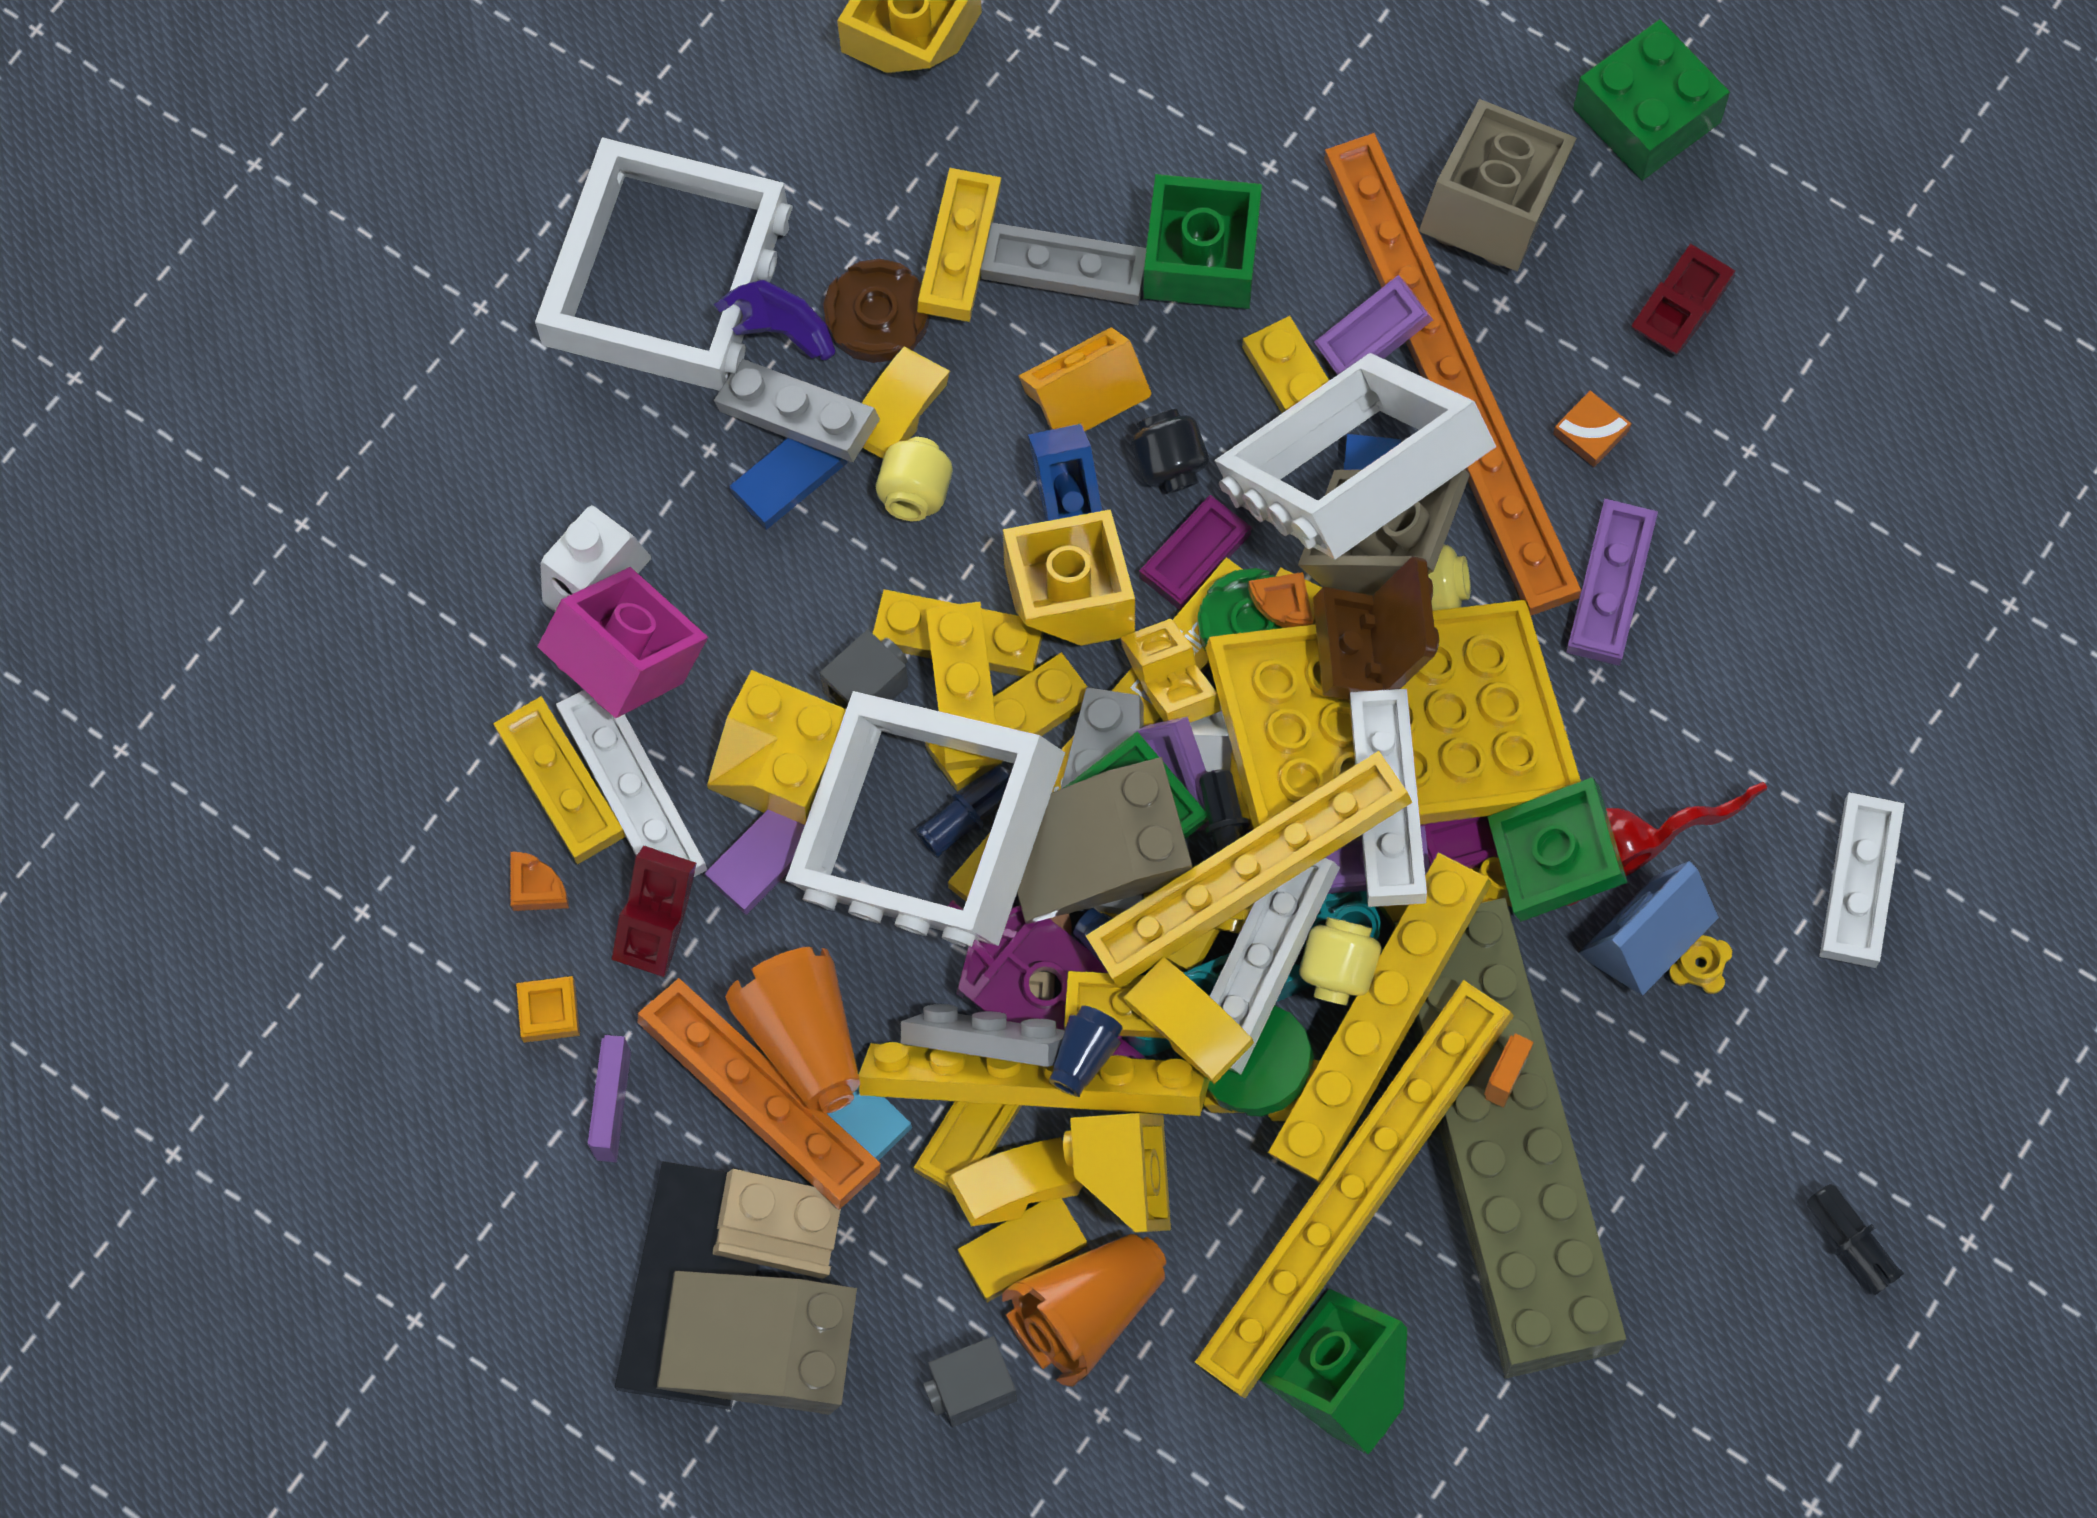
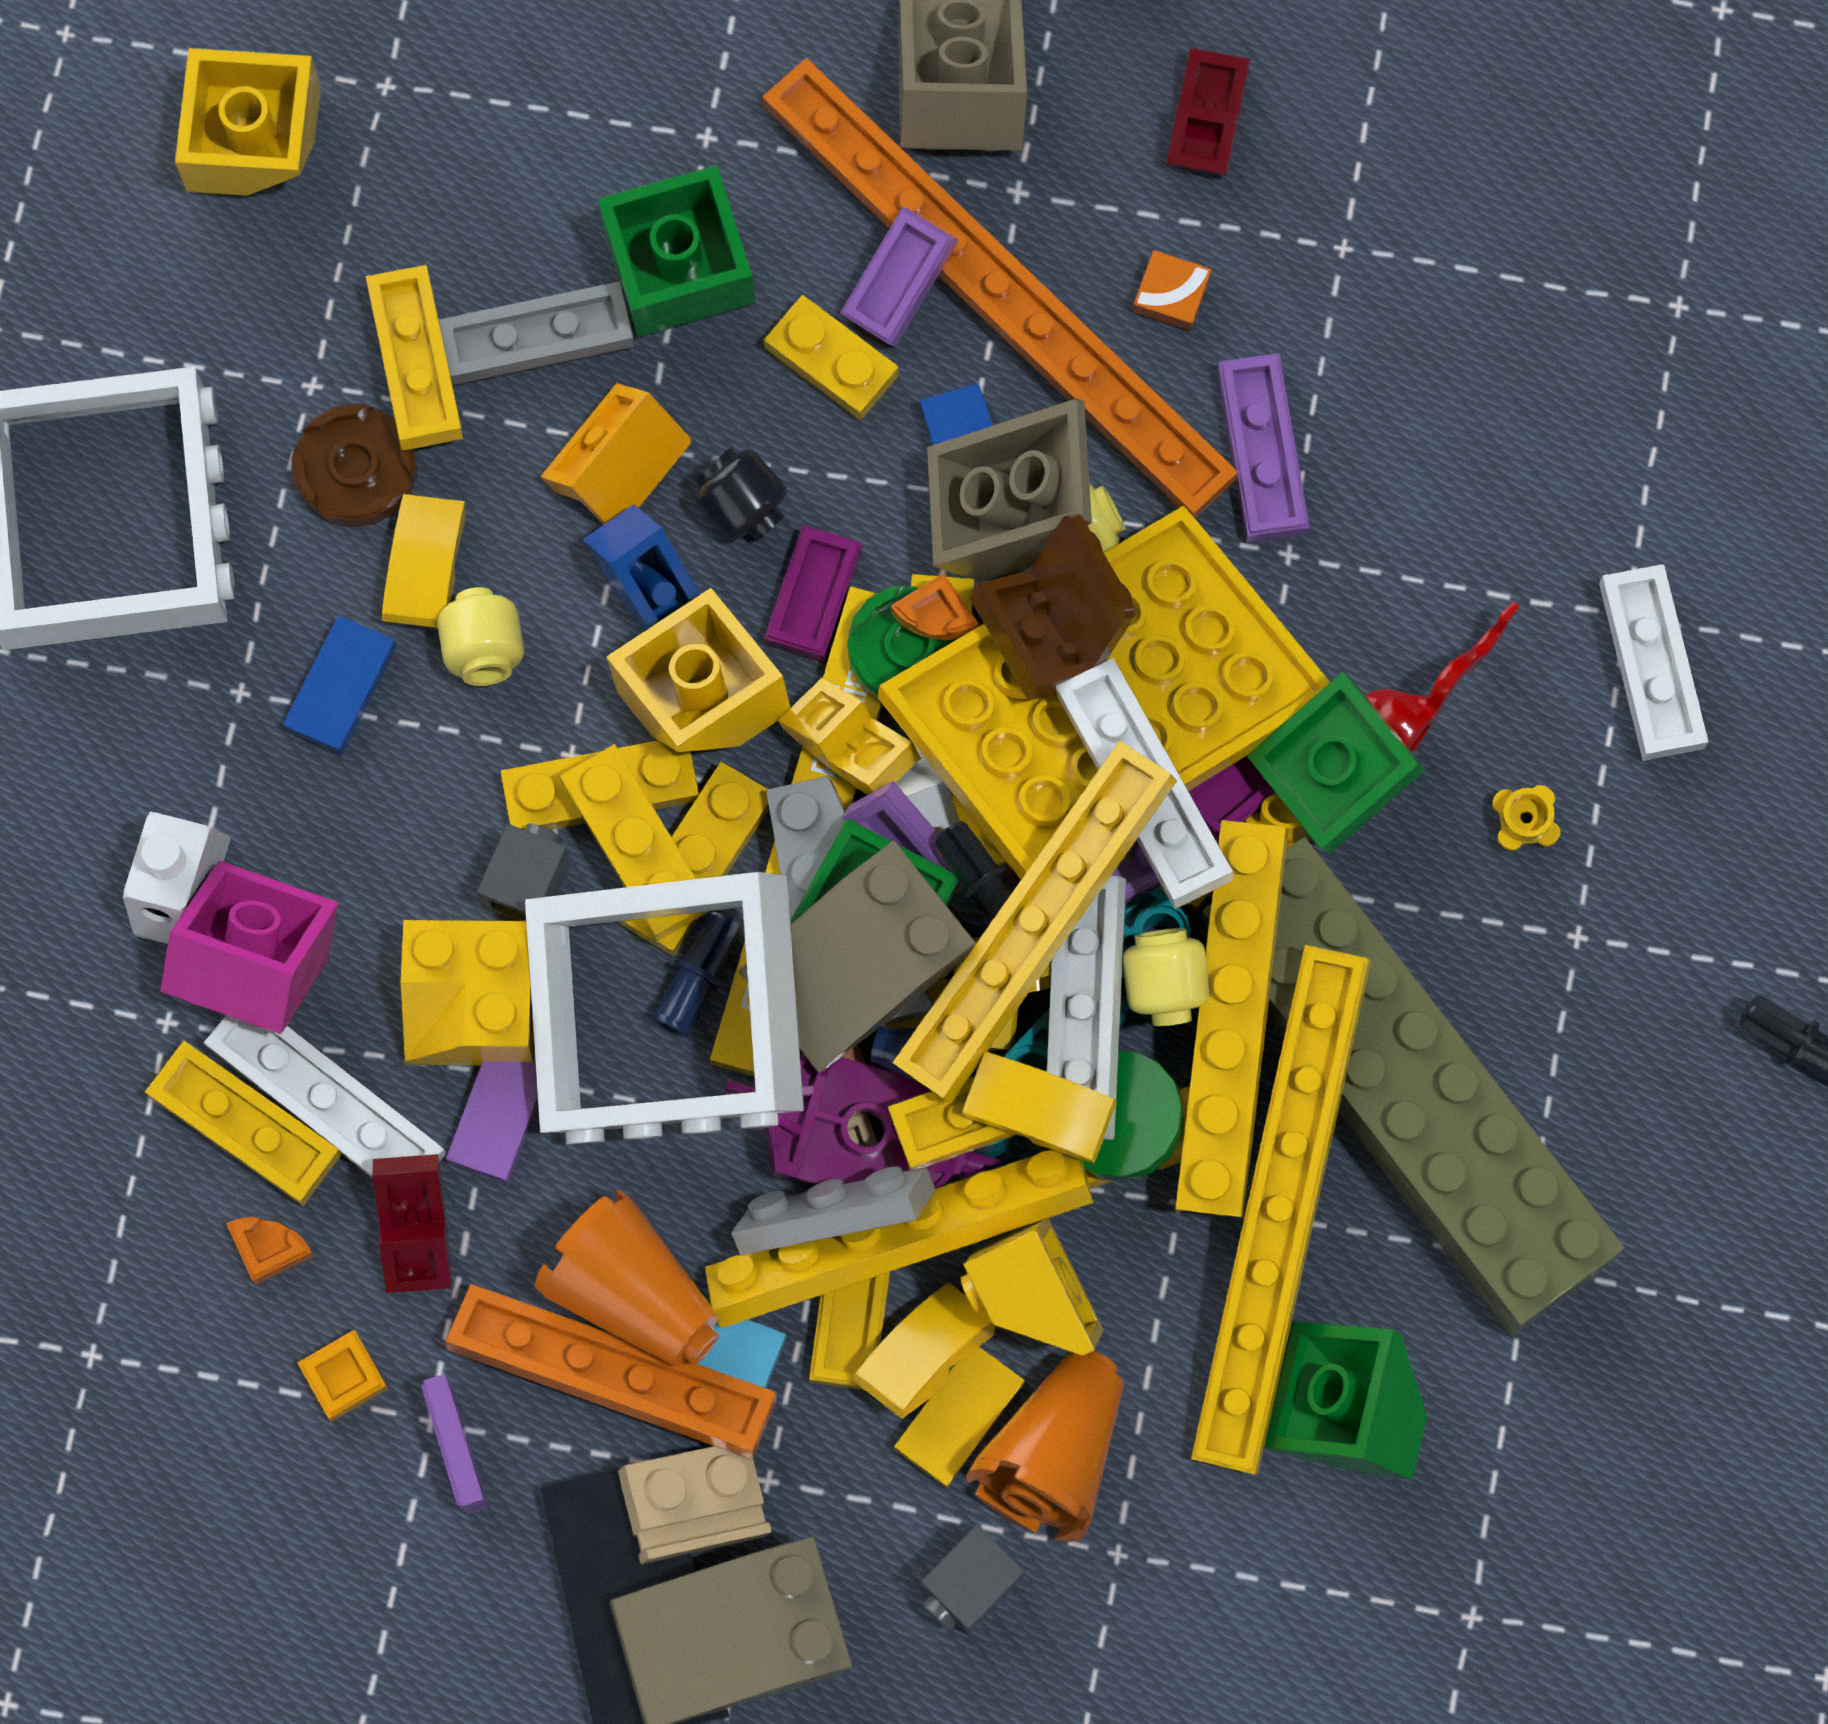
camera: 25 degrees left, 5 degrees up
(777, 310) = (250, 511): dark purple piece -> none
(797, 410) = (320, 612): light grey plate -> none
(1085, 1048) = (945, 1185): dark blue cone -> none
(1447, 442) = (1049, 381): white window -> none
(1508, 1069) = (1391, 1020): orange tile -> none
(1653, 928) = (1464, 803): medium blue slope -> none

